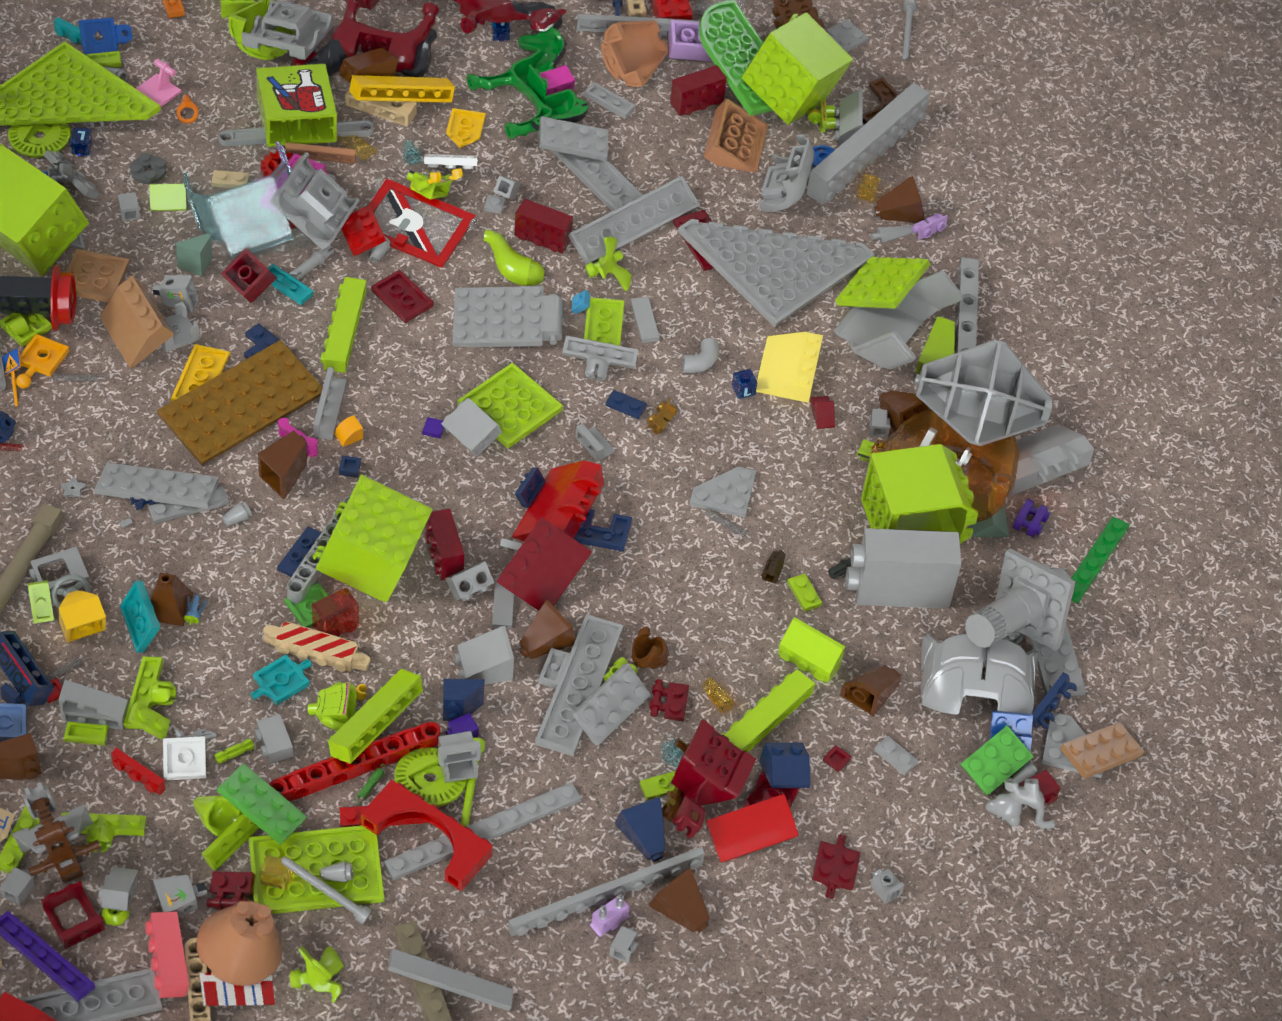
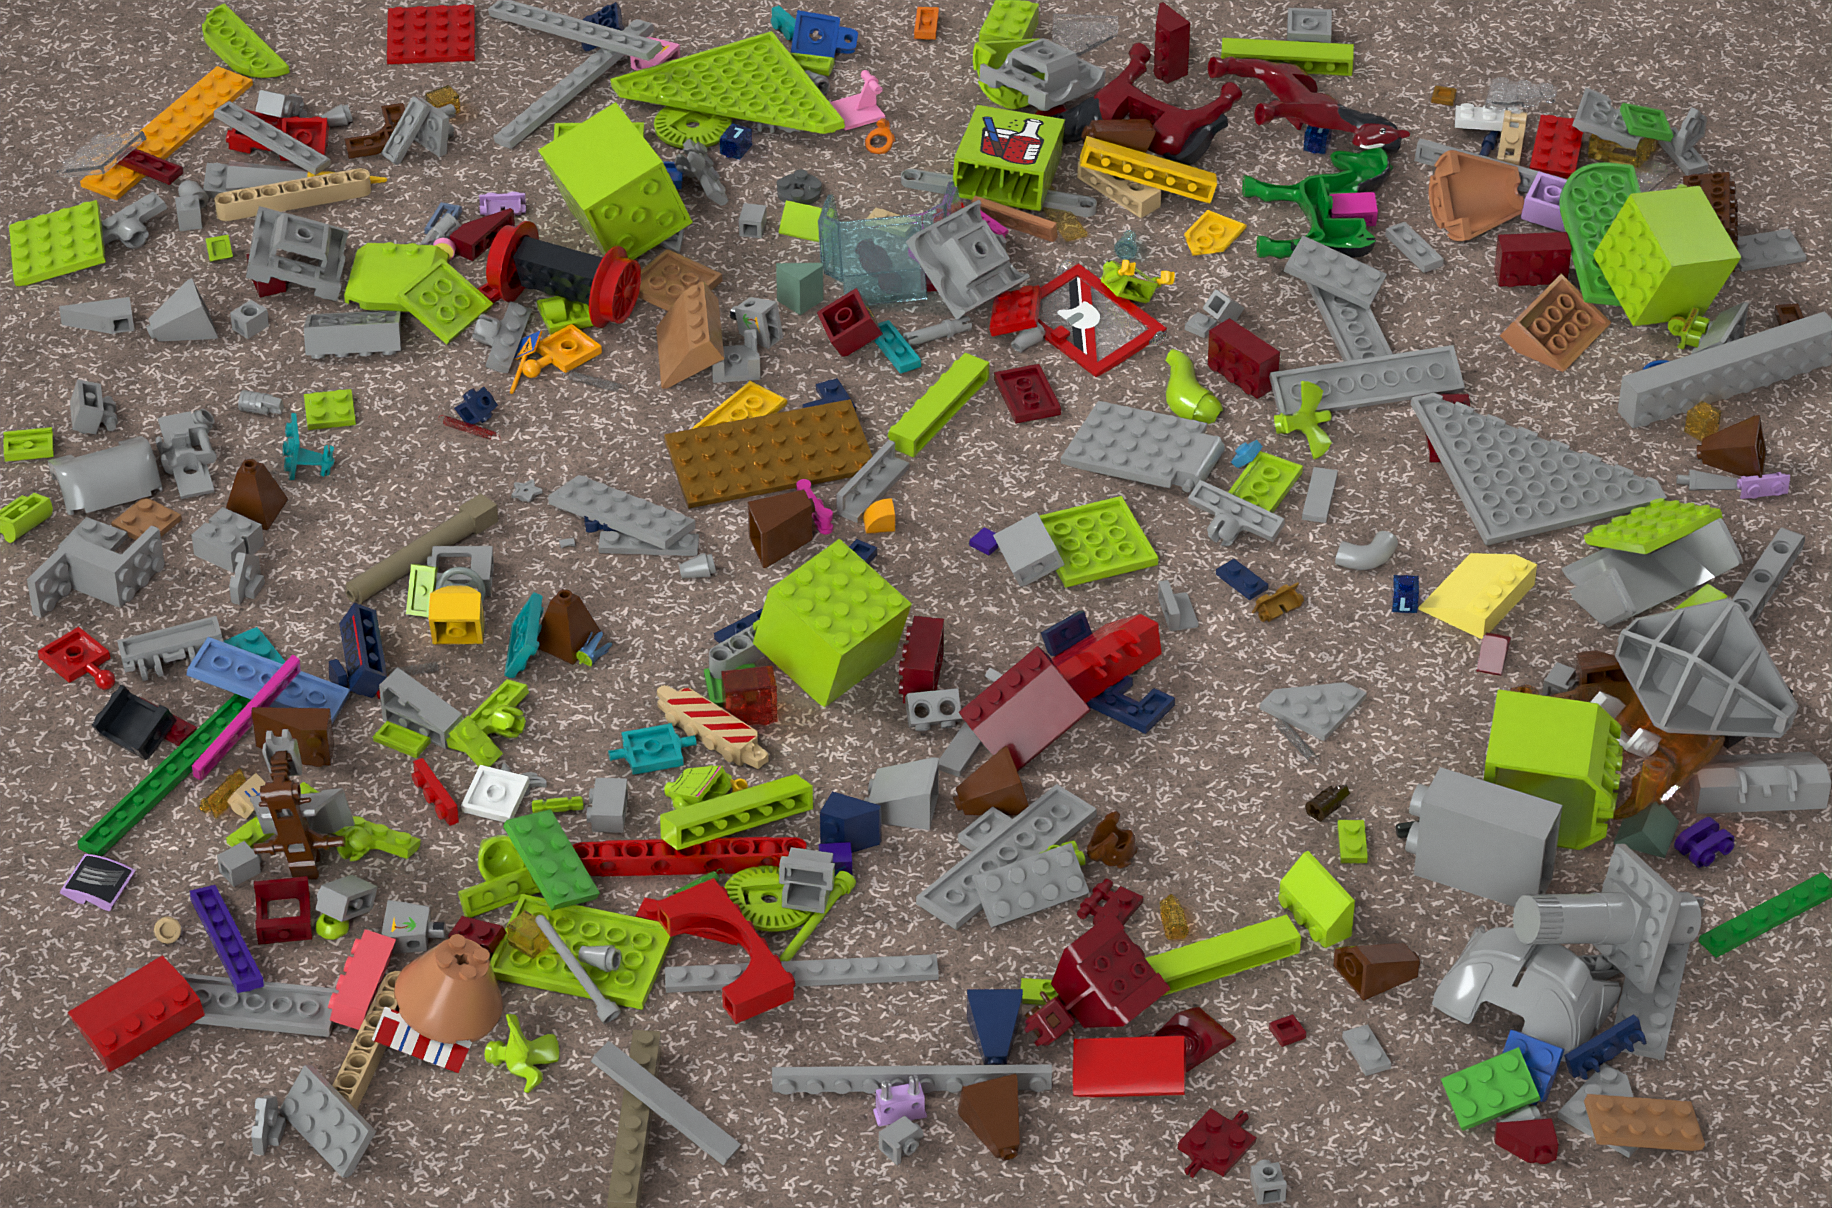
camera: 30 degrees right, 10 degrees down
(450, 161) = (1168, 263): white plate -> none
(786, 765) = (1211, 1011): dark blue slope -> none
(788, 178) = (1596, 378): light grey piece -> none
(1009, 805) = (1479, 1144): light grey animal -> none

